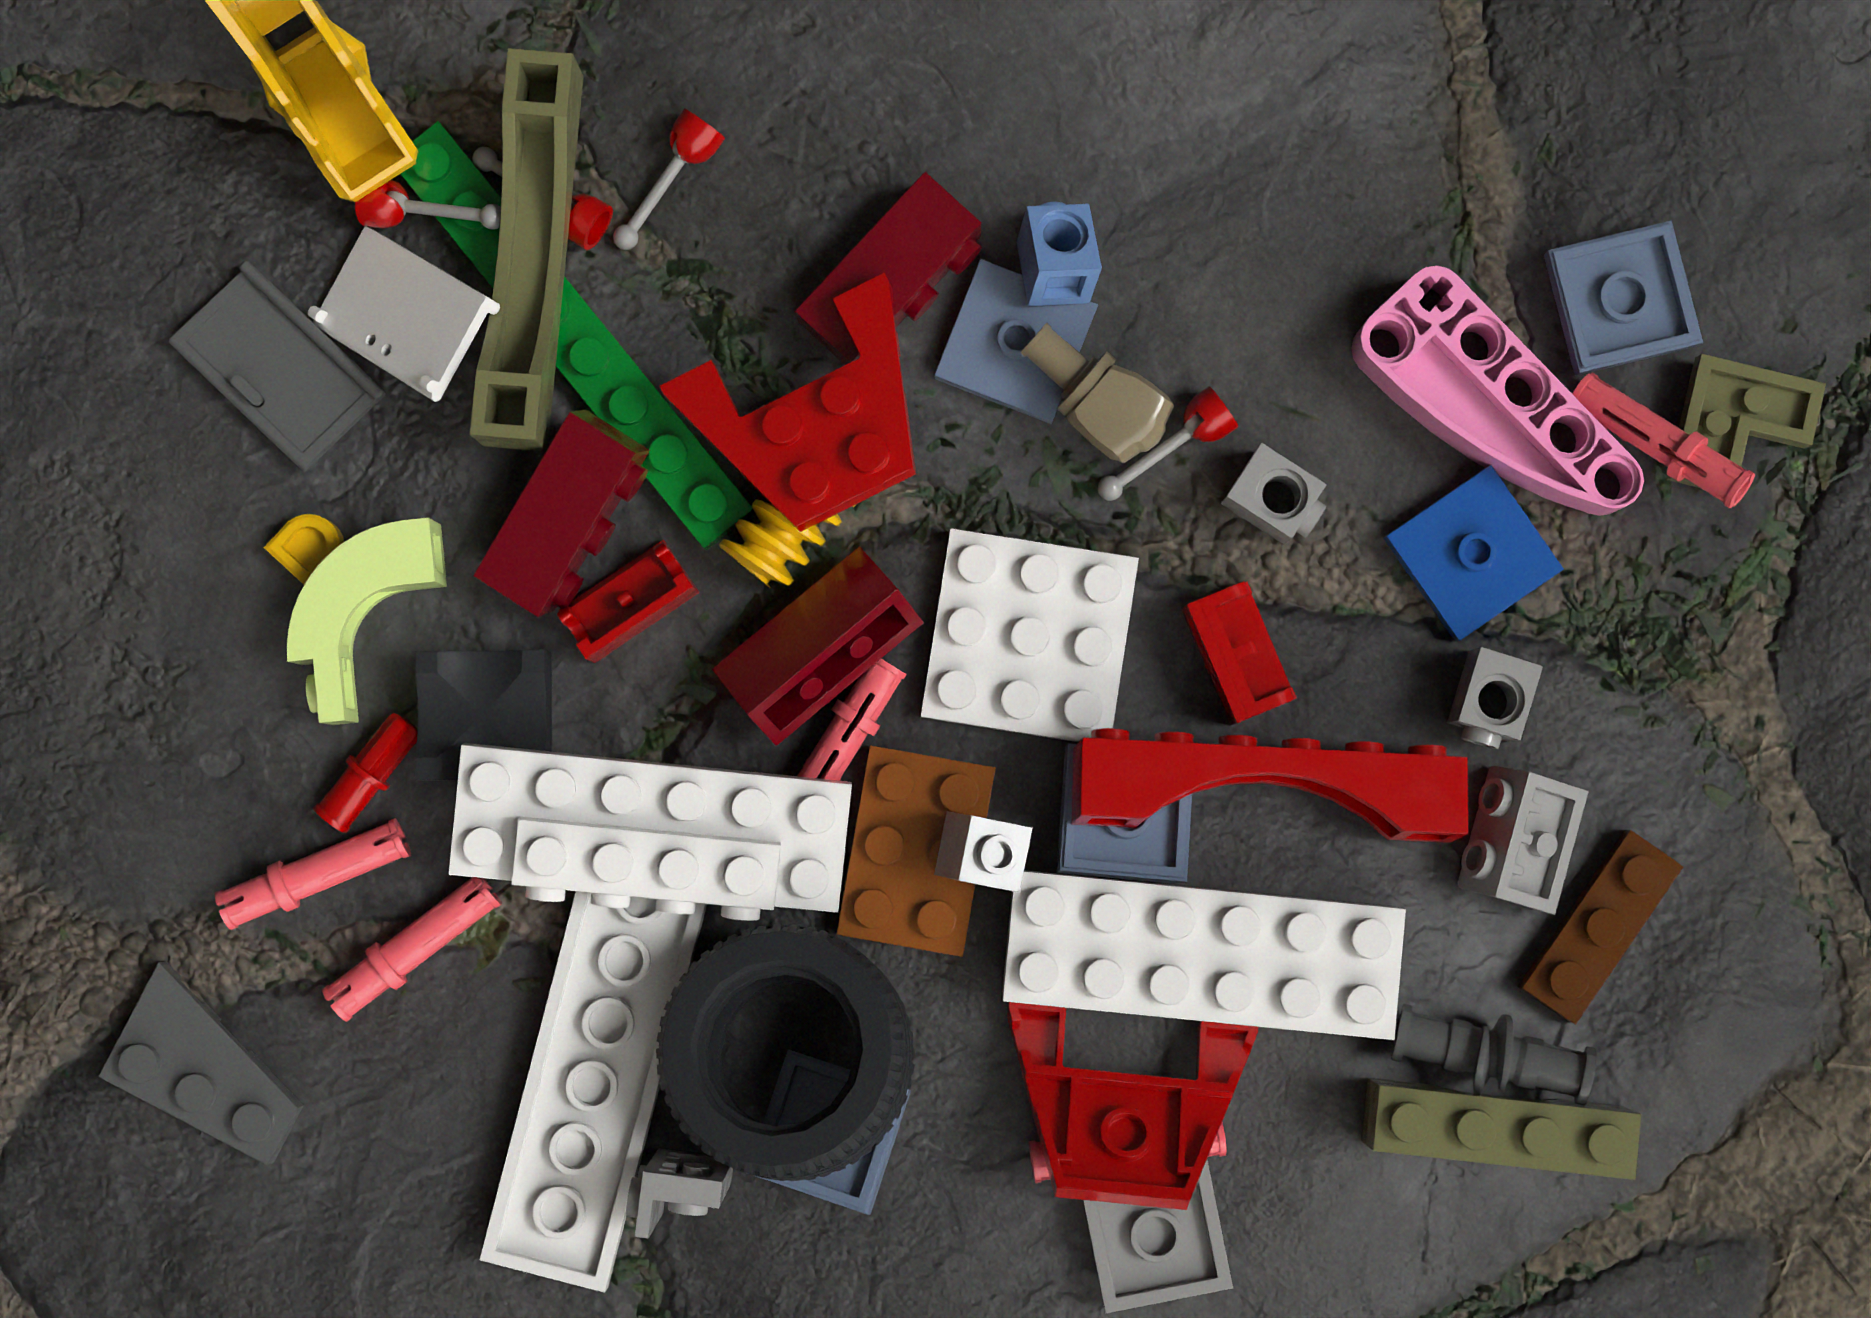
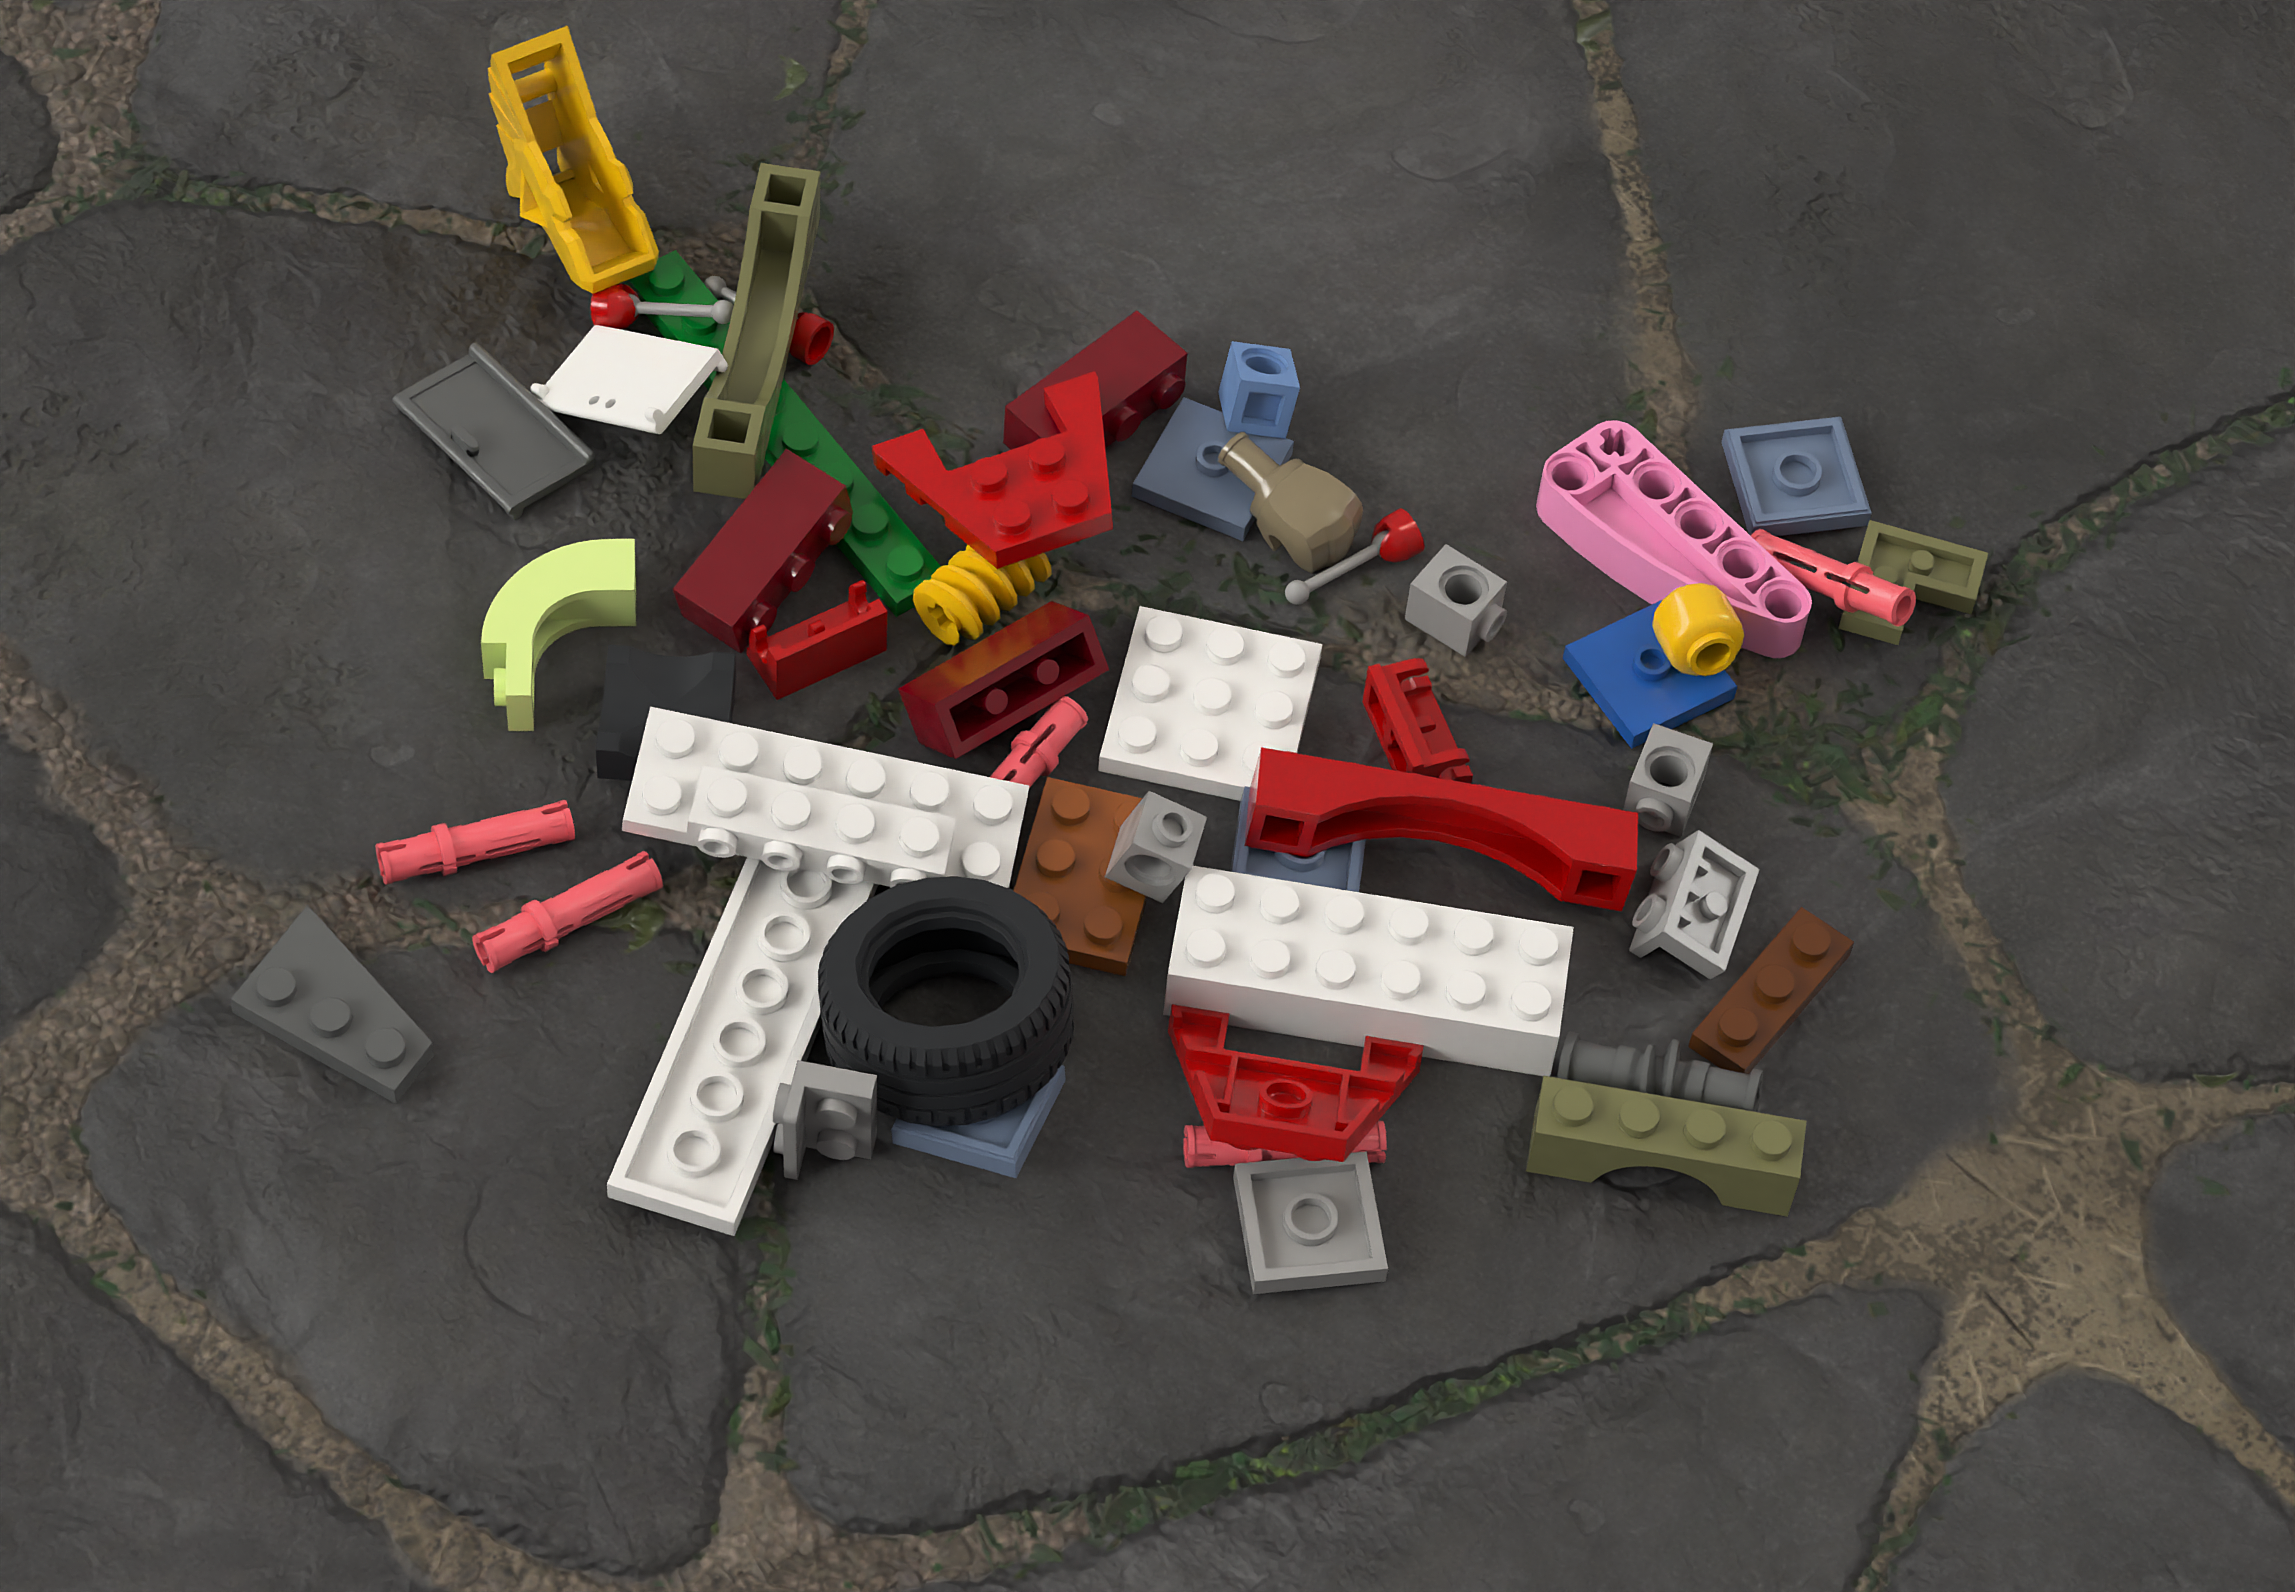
camera: 10 degrees left, 30 degrees down
(304, 544) = (493, 570): yellow tile -> none
(367, 772) = (540, 763): red axle -> none
(692, 143) = (915, 284): hinge -> none
(1526, 525) = (1698, 629): none -> yellow head

